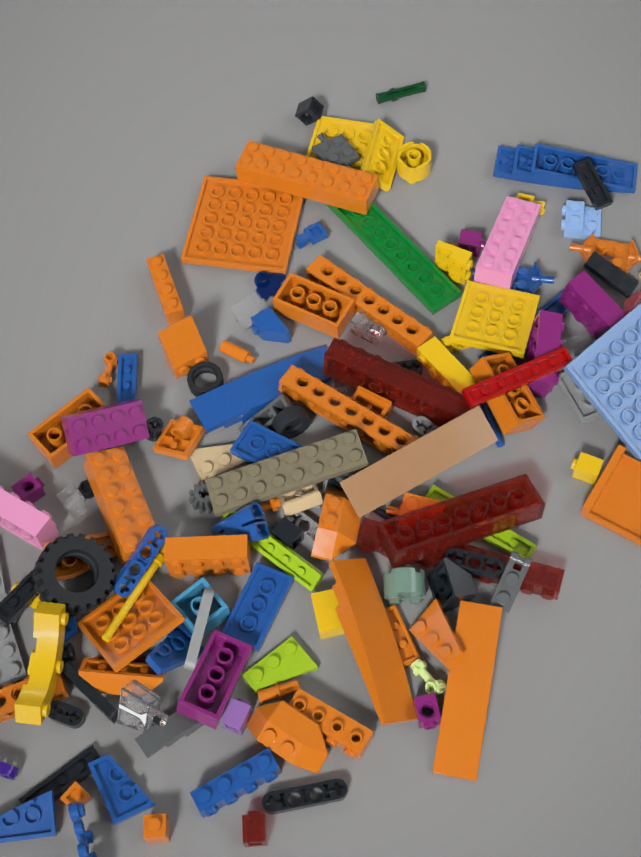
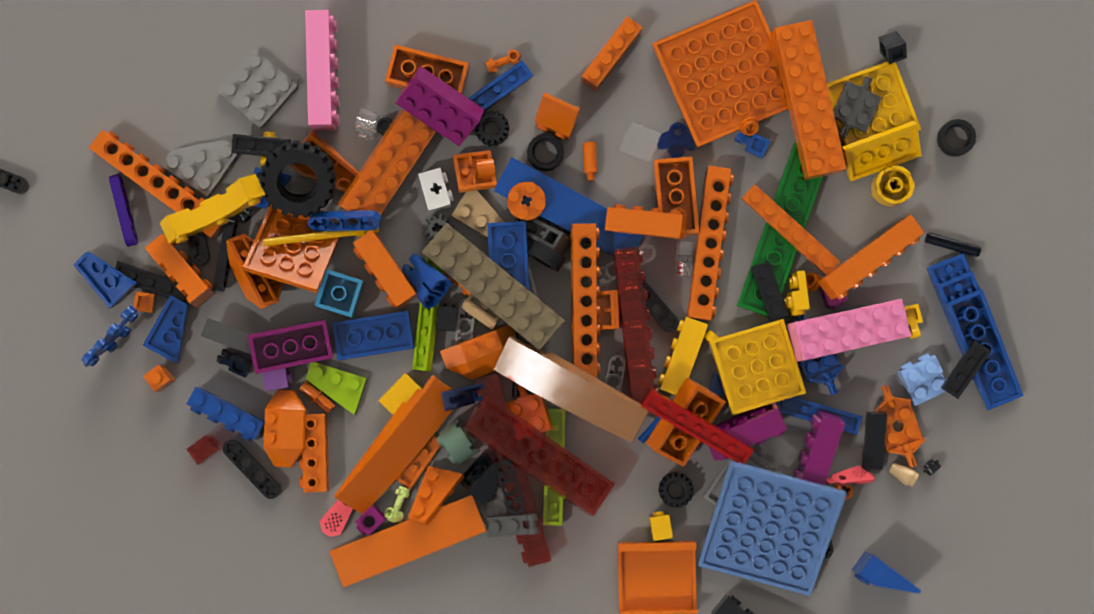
camera: 50 degrees right, 25 degrees up
(21, 487) = (348, 73): magenta brick -> none
(72, 739) = (180, 271): none -> orange wedge
(140, 707) = (232, 305): clear torso -> none
(156, 429) = (476, 145): black bush -> none
(157, 398) = (492, 139): none -> black tyre
(171, 480) = (436, 201): none -> white brick
(172, 651) = (290, 300): blue wing -> none
(196, 744) = (237, 364): none -> black plate
(199, 629) = (316, 309): light grey beam -> none
(234, 398) = (516, 196): none -> orange plate
(269, 327) = (631, 171): blue slope -> none
(297, 226) = (749, 130): none -> orange plate
(318, 329) = (646, 222): none -> orange brick
(364, 553) = (461, 396): none -> dark blue hinge
(394, 94) = (991, 132): dark green pin -> none
(398, 242) = (790, 230): none -> orange plate
(400, 734) = (341, 510): none -> coral piece
(407, 118) = (969, 130): none -> black tyre
(438, 281) = (769, 291): none -> black plate
(460, 201) = (870, 257): none -> orange brick
(486, 151) = (953, 244): none -> black axle
(558, 449) = (687, 489): none -> black tyre

